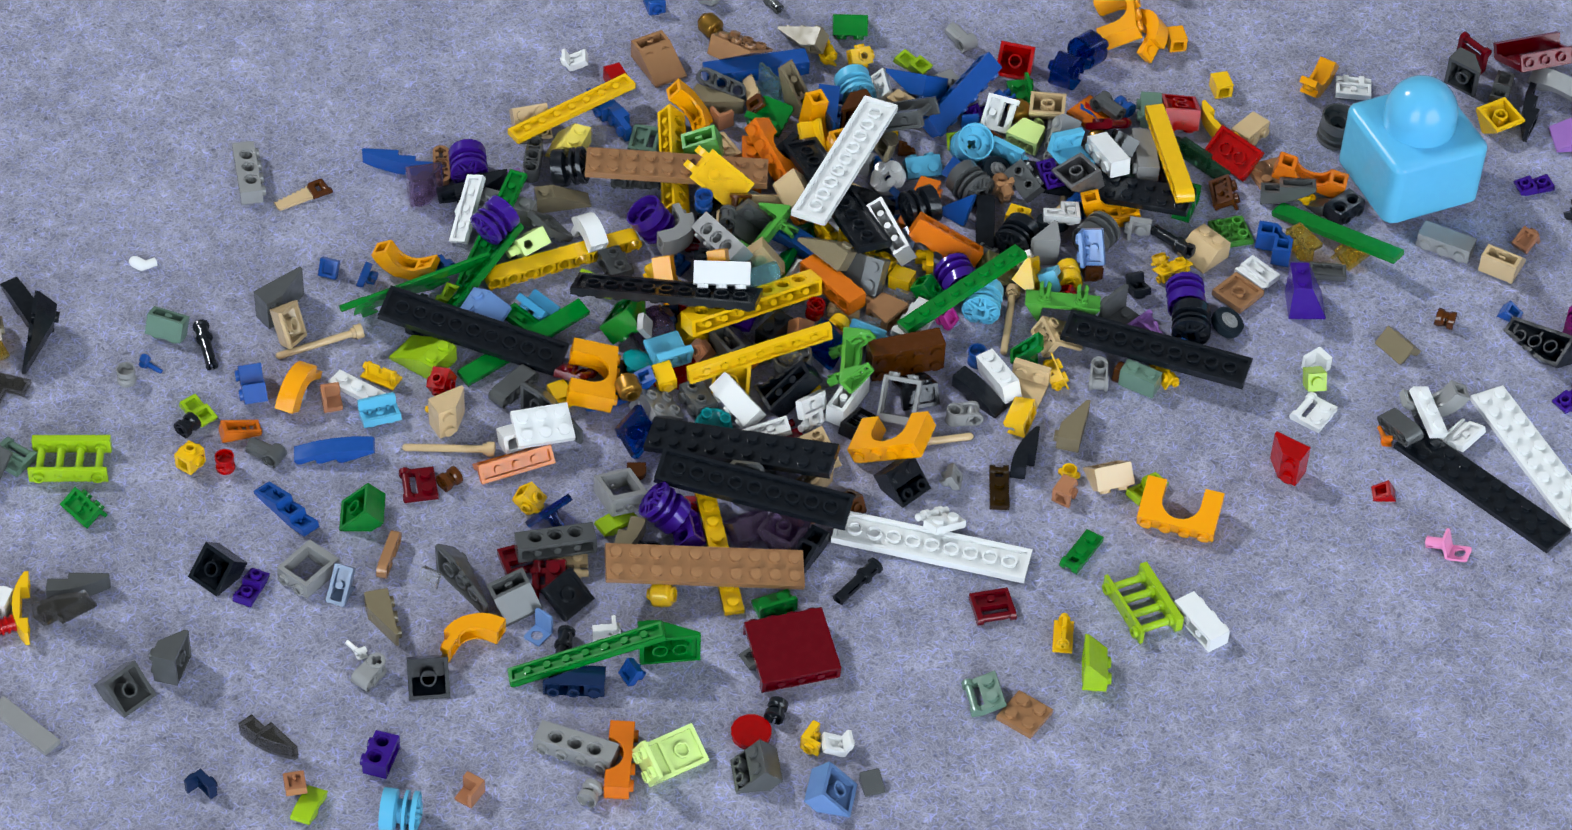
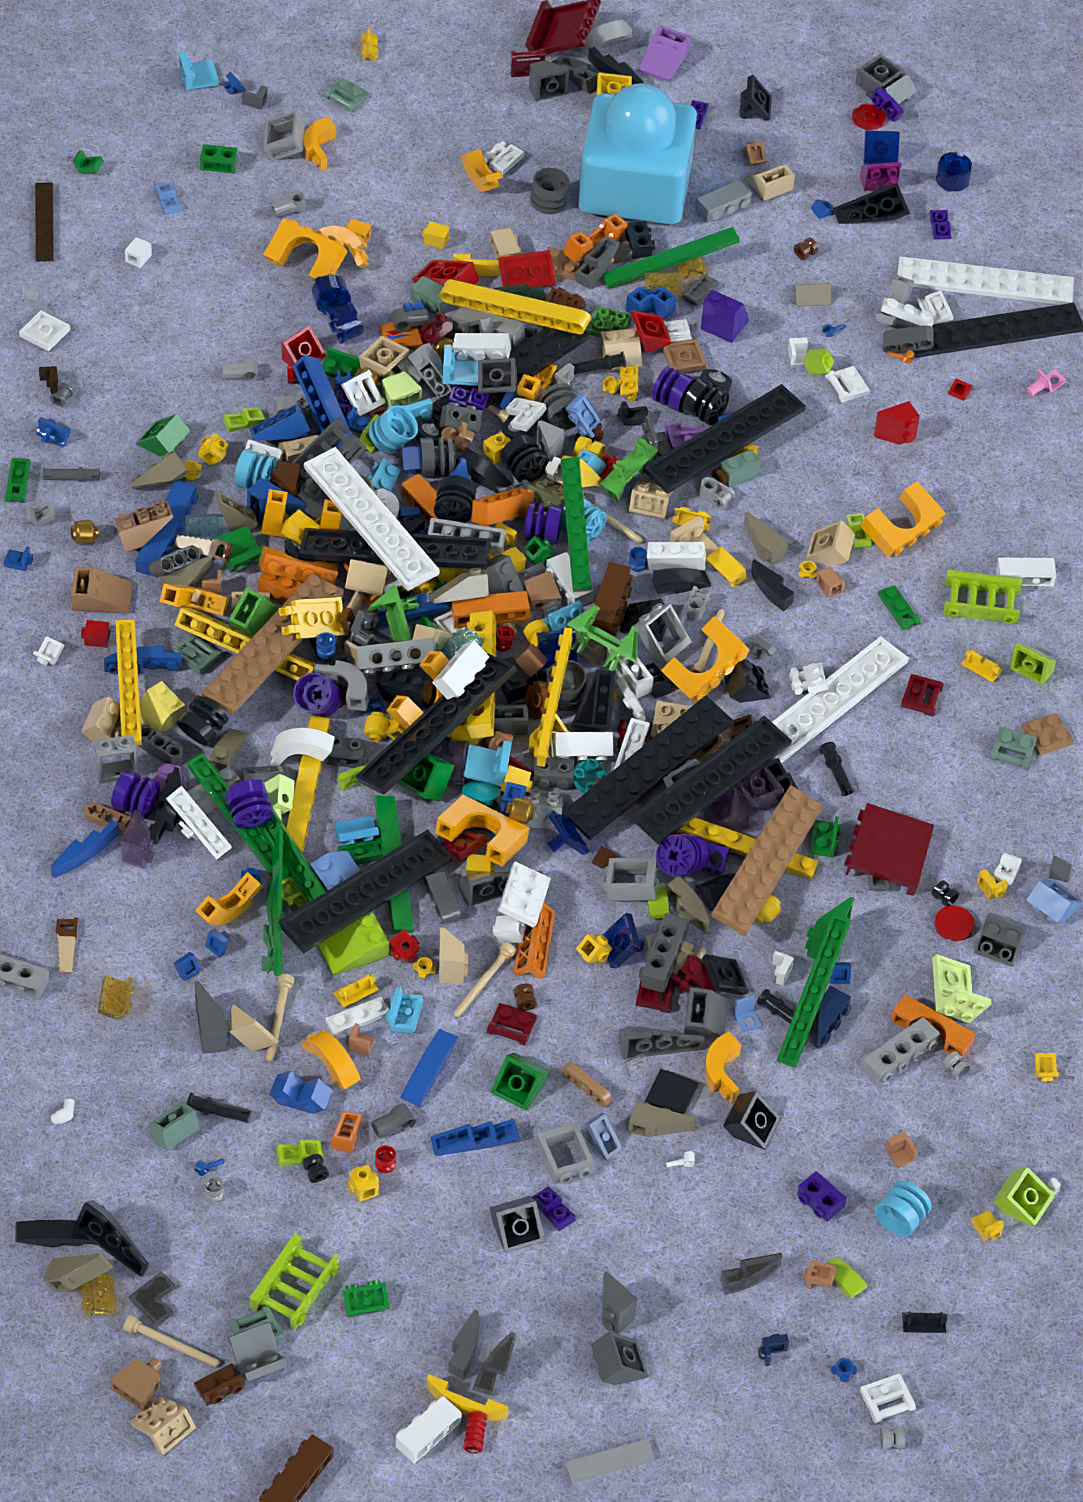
camera: 60 degrees left, 5 degrees up
(268, 240) = (115, 997): none -> clear yellow bracket
(369, 671) = (720, 1161): light grey piece -> none
(422, 614) = (671, 1092): none -> black tile
(487, 122) = (106, 747): none -> light grey window
(644, 325) = (461, 765): light grey tile -> none
(999, 488) = (792, 623): dark brown plate -> none
(1028, 349) = (656, 522): green slope -> none
(1237, 252) = (651, 330): none -> red slope
(1365, 375) = (830, 329): none -> blue hand

